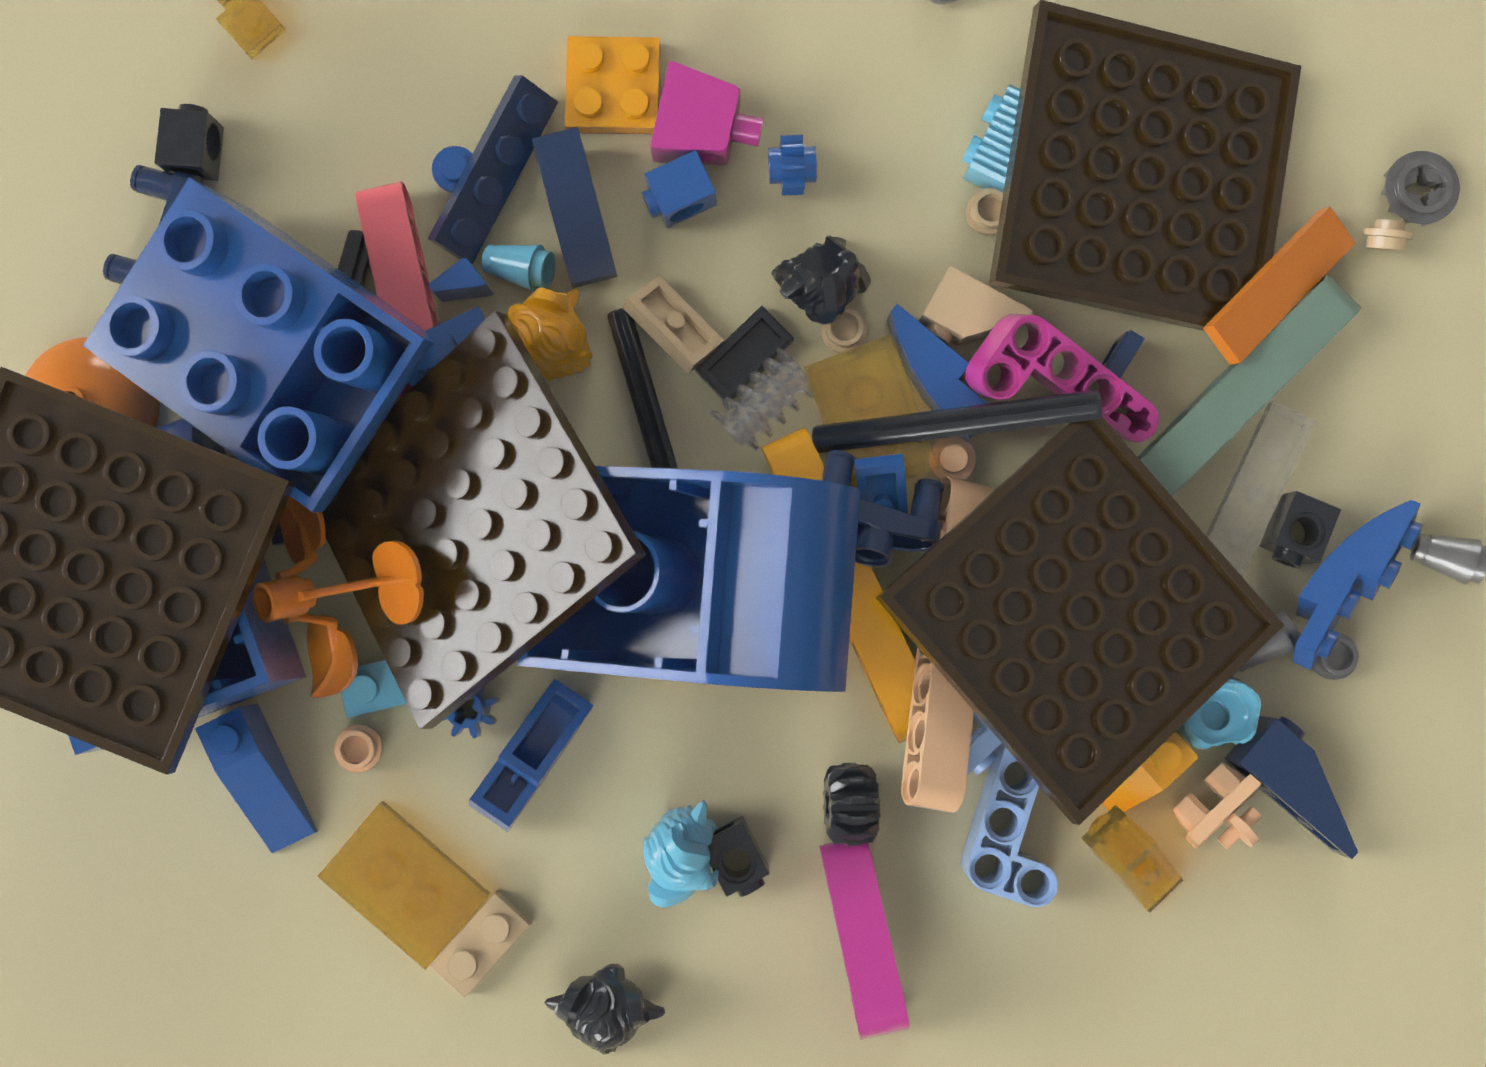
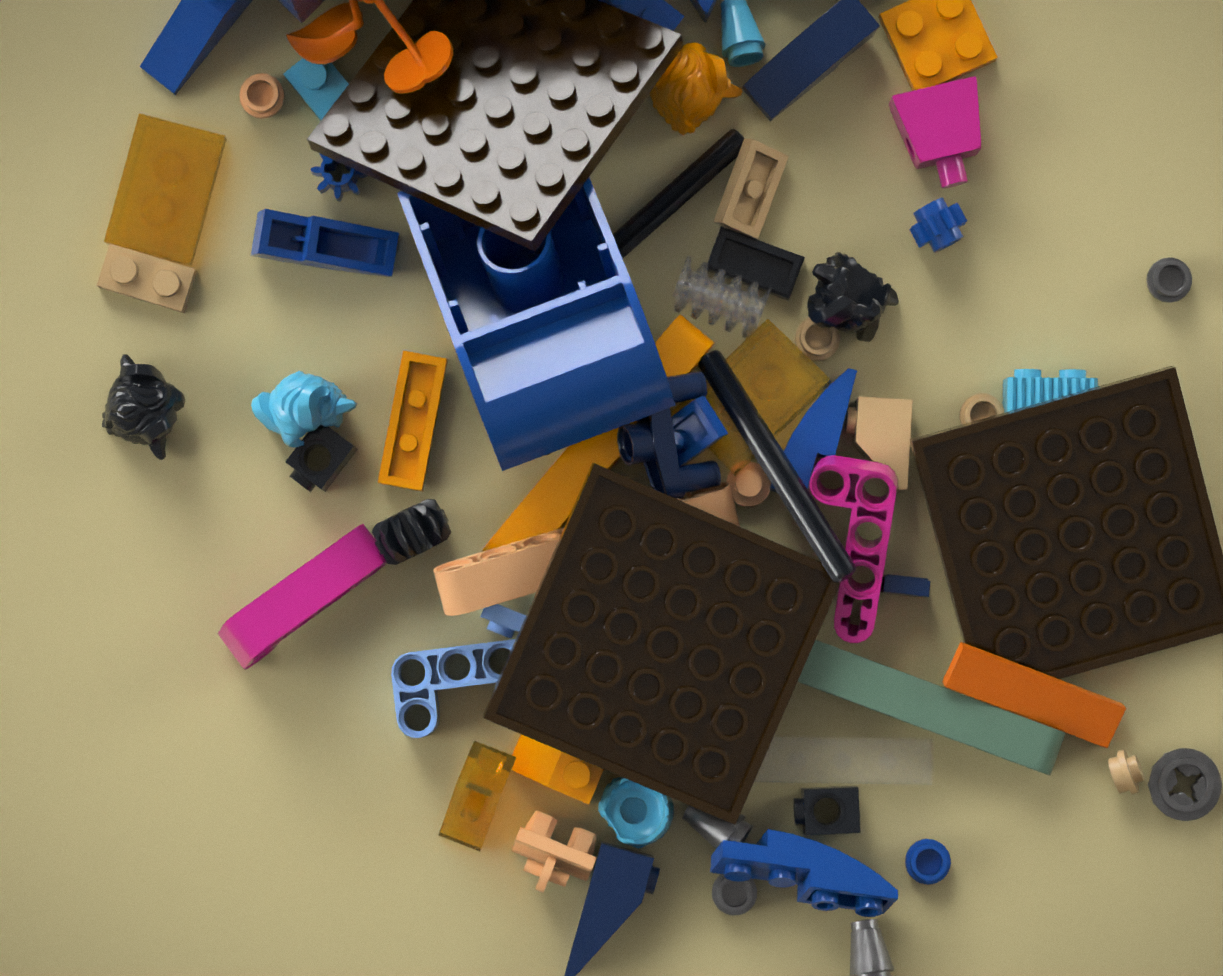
camera: 65 degrees right, 0 degrees up
(679, 190) = (869, 138): blue brick -> none
(742, 751) = (412, 421): none -> light orange plate
(1385, 460) = (927, 861): none -> blue plate

